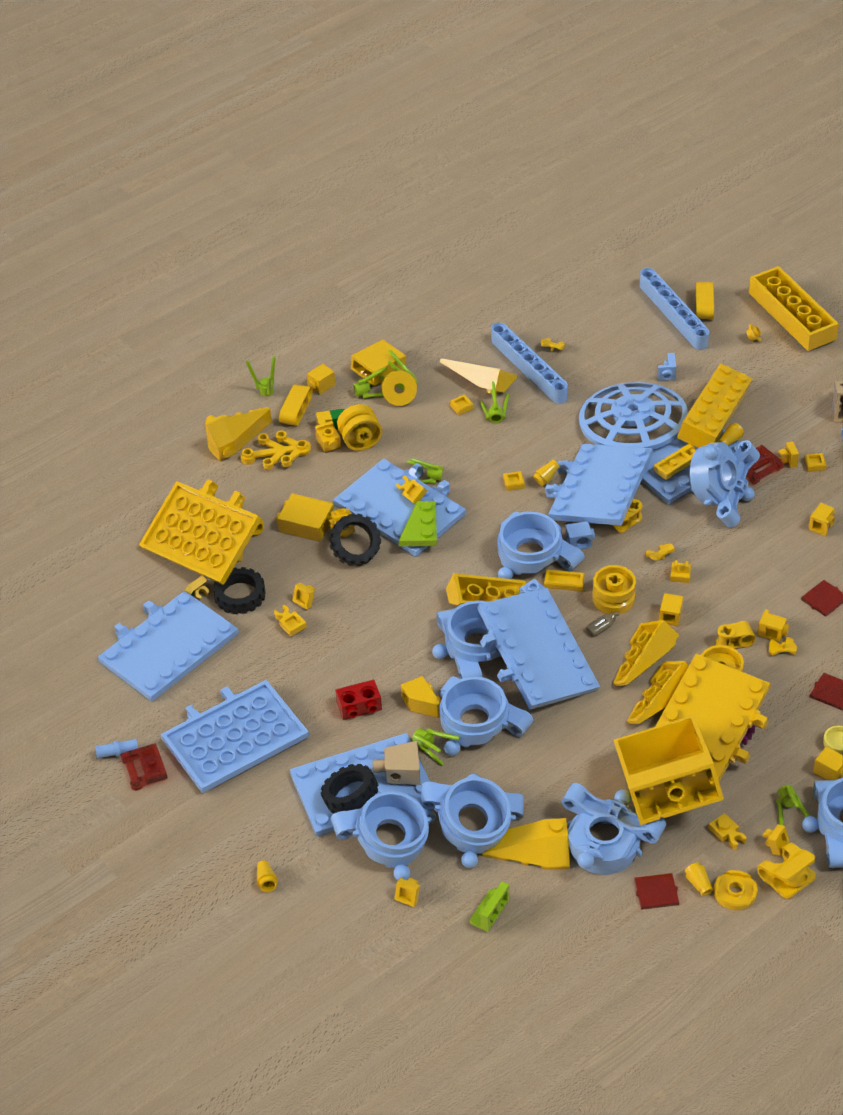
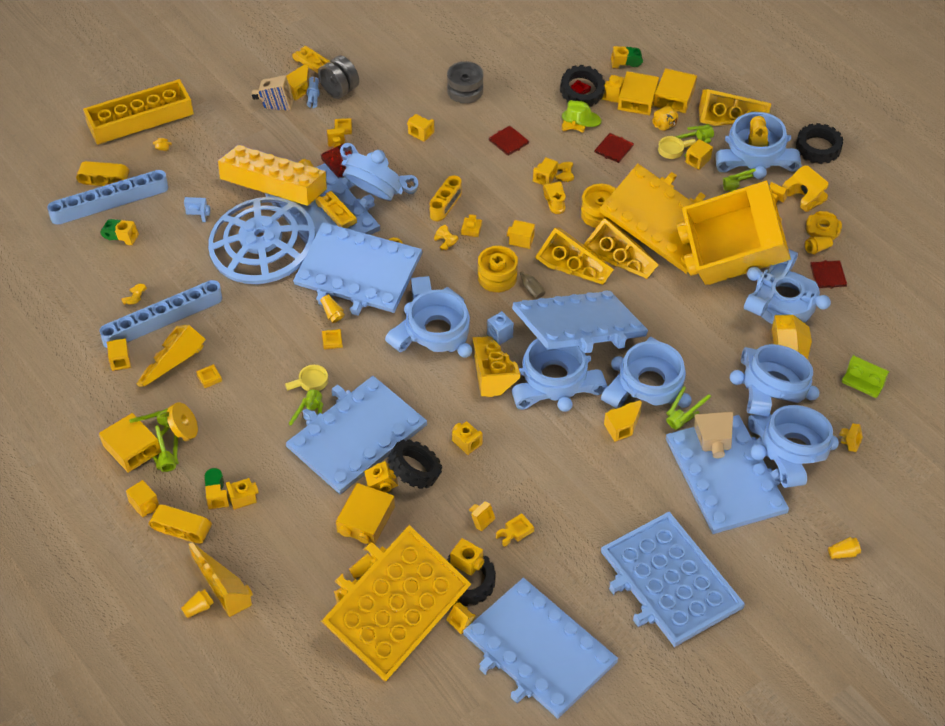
camera: 90 degrees left, 5 degrees up
(115, 748) = (690, 688): light blue pin -> none
(151, 765) = (710, 654): clear red plate -> none
(249, 578) = (466, 549): none -> yellow brick
(266, 384) = (139, 554): lime plant -> none
(298, 448) = (251, 542): yellow plant -> none
(343, 777) = (752, 449): black tyre -> none
(358, 699) = (623, 472): red brick -> none
(359, 427) = (243, 456): yellow wheel -> none
(395, 581) = (467, 437): none -> yellow brick
(412, 490) = (347, 412): yellow plate -> none
(421, 526) = (399, 408): lime wing -> none
(460, 469) = (310, 378): none -> light yellow piece
(478, 342) = (118, 354): none -> yellow brick
(495, 412) = (232, 346): lime plant -> none
(564, 580) = (475, 305): yellow tile -> none
(629, 323) = (120, 230): none -> yellow leg
(715, 546) = (445, 198): none -> yellow beam

